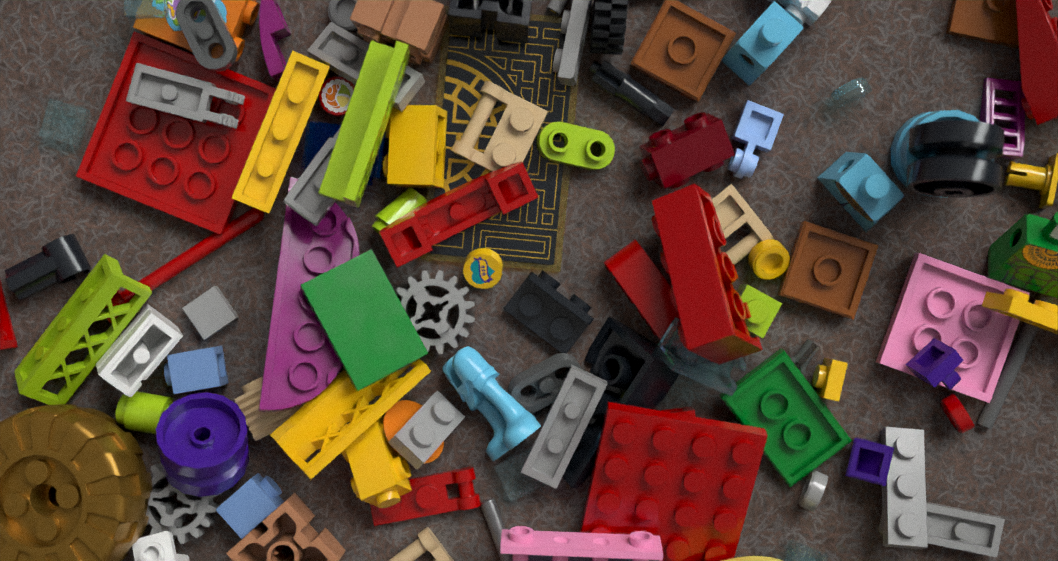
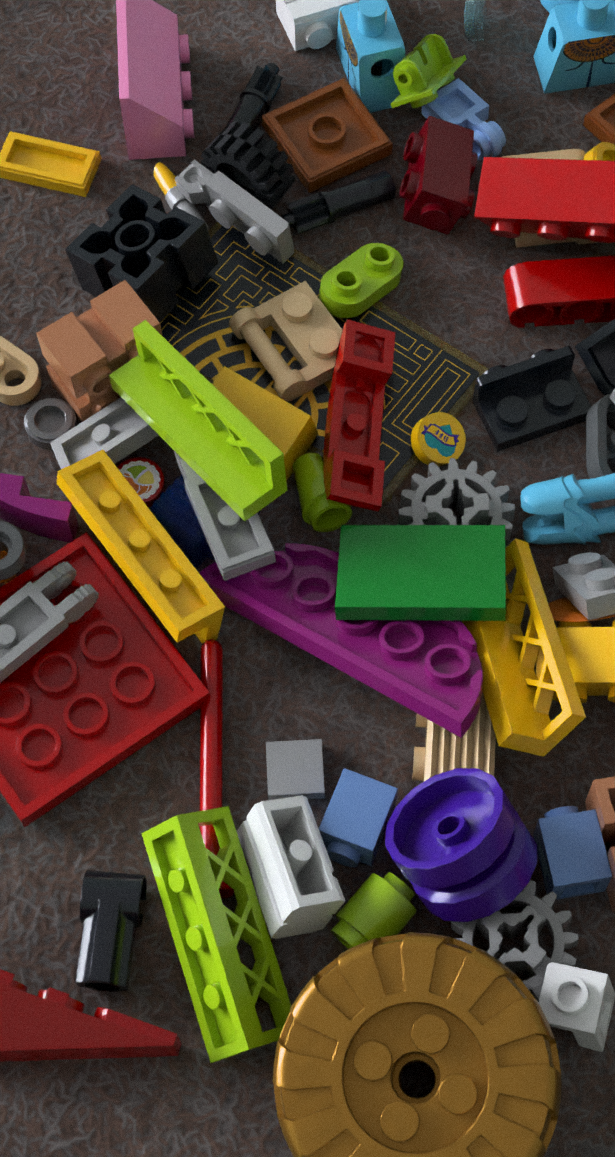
camera: 60 degrees left, 25 degrees down
(764, 94) = (425, 71): none -> lime hinge

